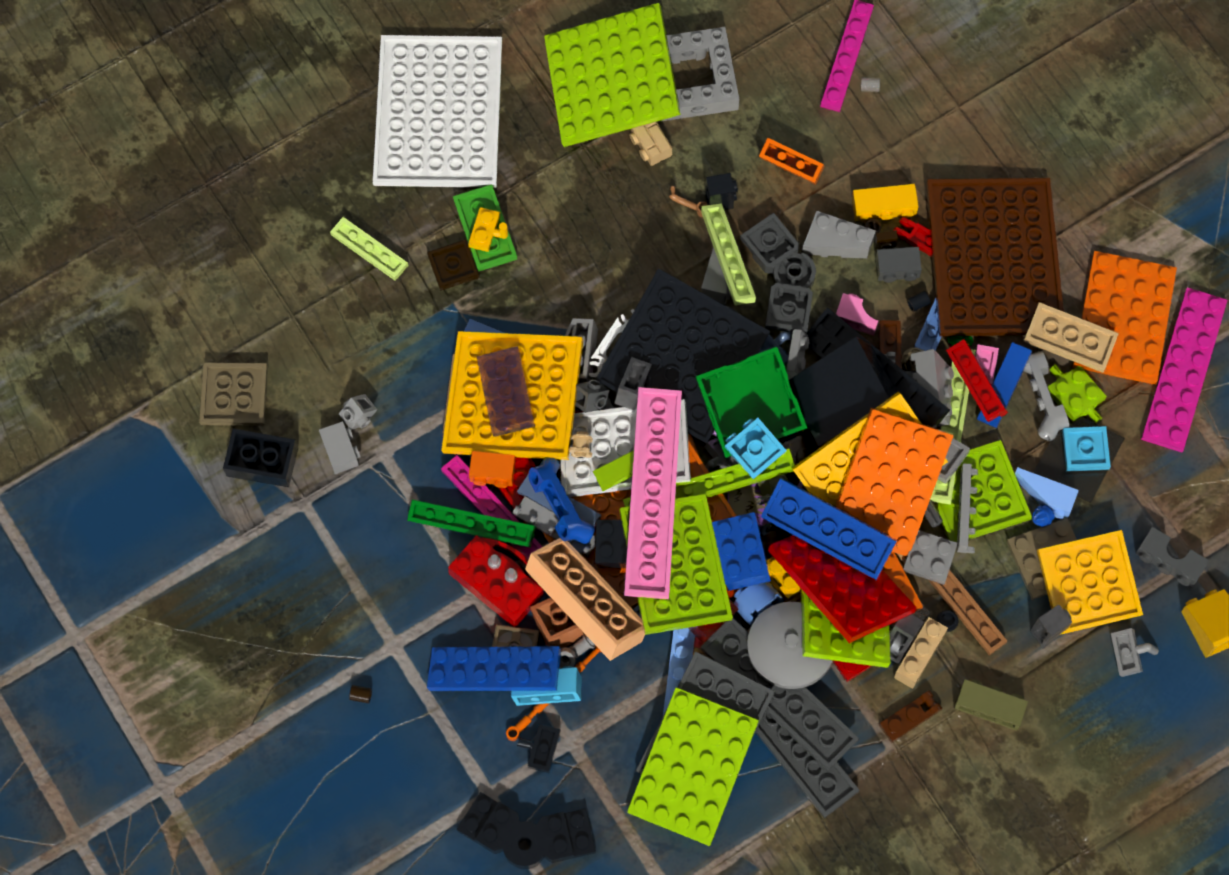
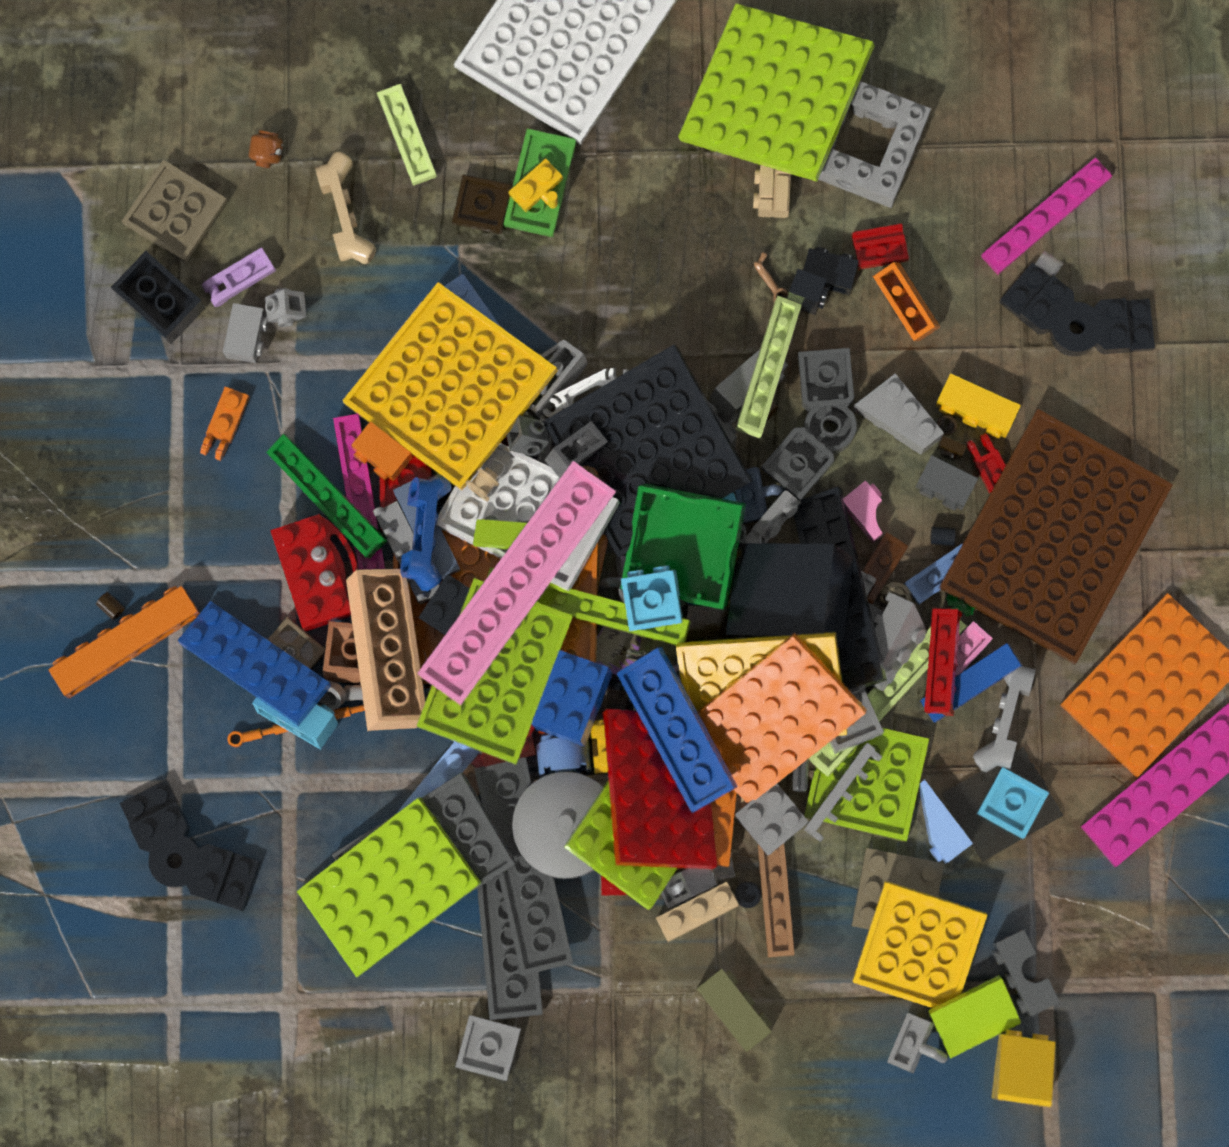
camera: 35 degrees right, 10 degrees up
(273, 314) = (265, 149): none -> dark orange head
(309, 412) = (238, 277): none -> lavender plate
(362, 516) = (225, 421): none -> orange hinge
(373, 344) = (330, 180): none -> tan plate
(387, 713) = (124, 642): none -> orange brick
(505, 391) = (441, 379): plate -> none
(541, 747) = (254, 772): black plate -> none
(731, 163) = (837, 269): none -> black brick
(748, 137) = (880, 246): none -> red plate
(836, 838) = (488, 1048): none -> light grey plate
(889, 110) = (1050, 307): none -> black plate
(909, 717) = (644, 970): reddish brown plate -> none
(1043, 516) = (918, 847): blue plate -> none
(1051, 625) = (848, 969): flat silver arch -> none
(1071, 337) = (1075, 675): tan plate -> none
(1076, 393) = (1043, 736): lime plate -> none
(1158, 607) = (974, 1016): none -> lime tile

